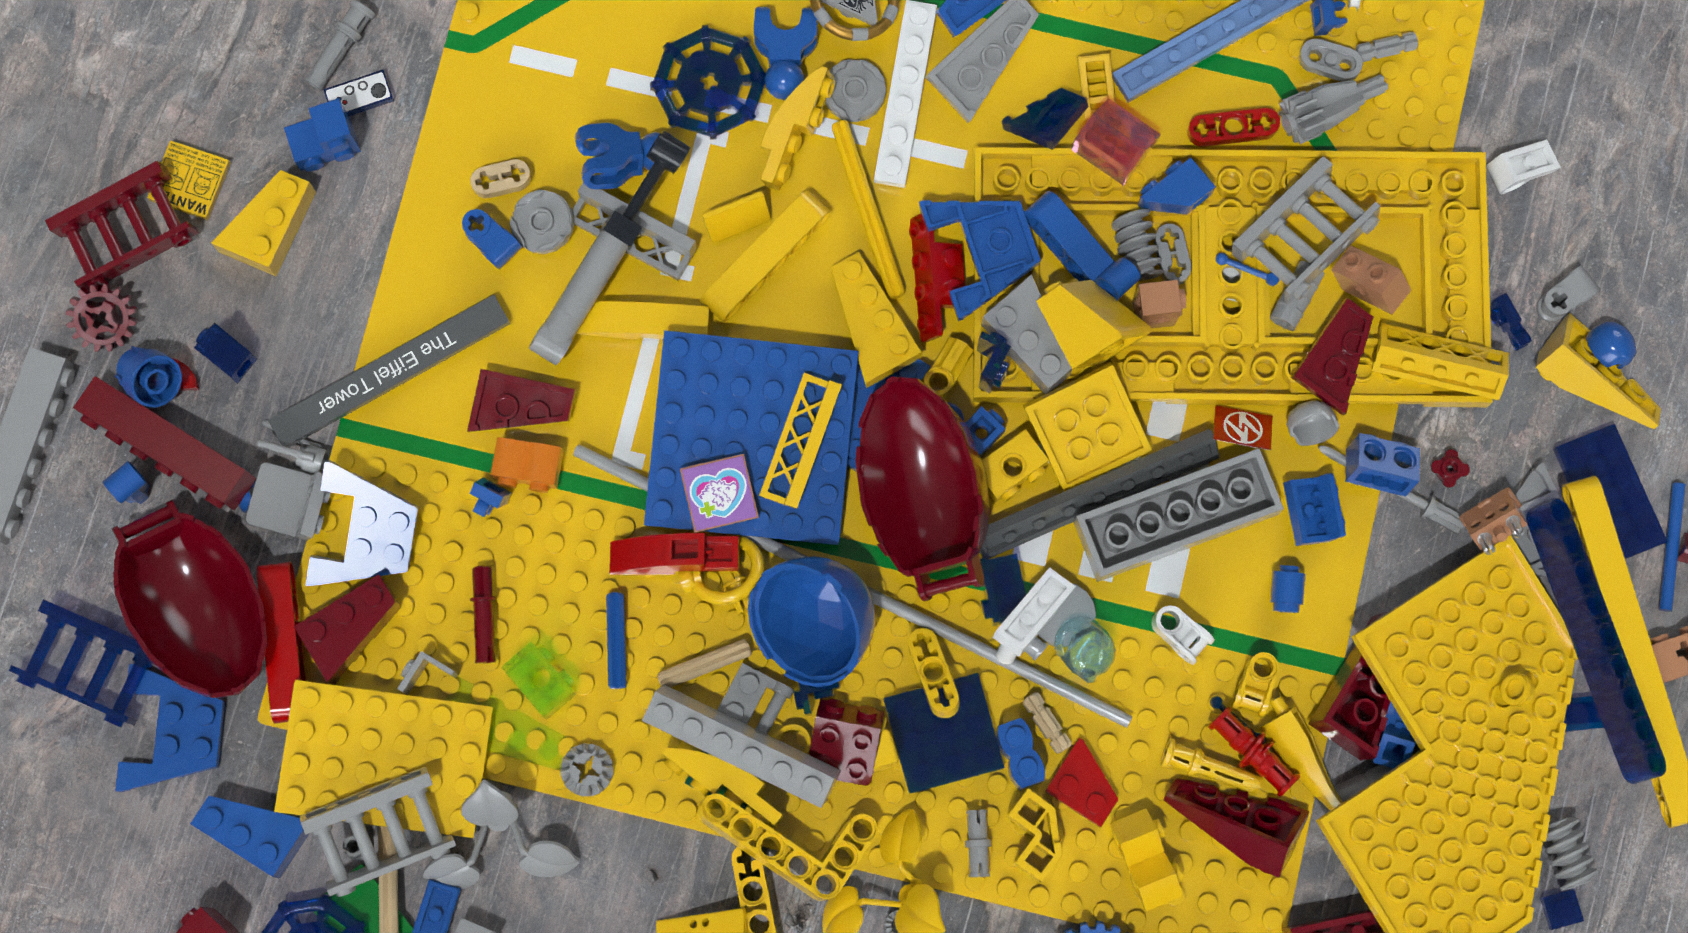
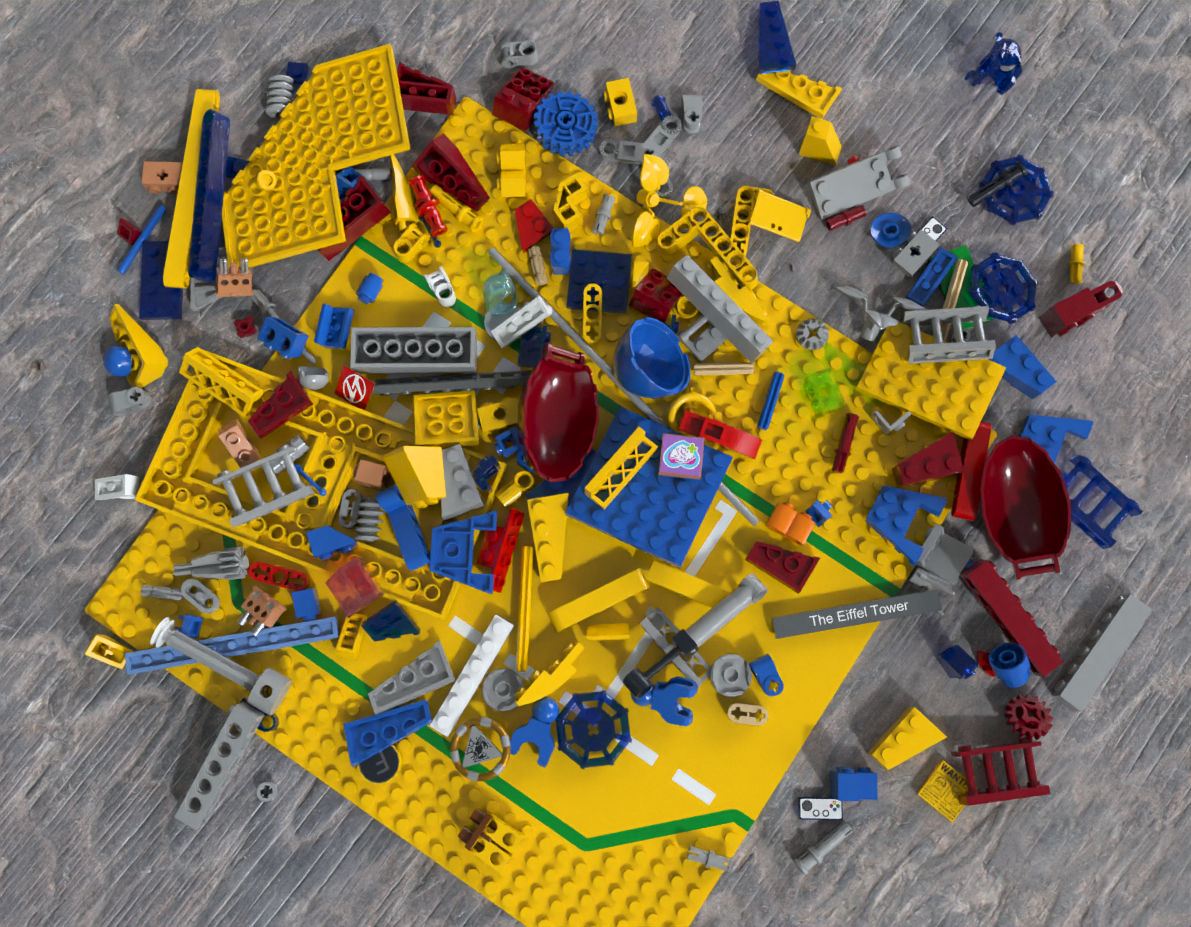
camera: 160 degrees left, 0 degrees up
(127, 484) = (1042, 598): blue piece -> none
(1176, 101) = (306, 604): none -> blue brick
(1235, 73) = (262, 608): none -> nougat piece
(1506, 316) = (170, 400): clear blue plate -> none

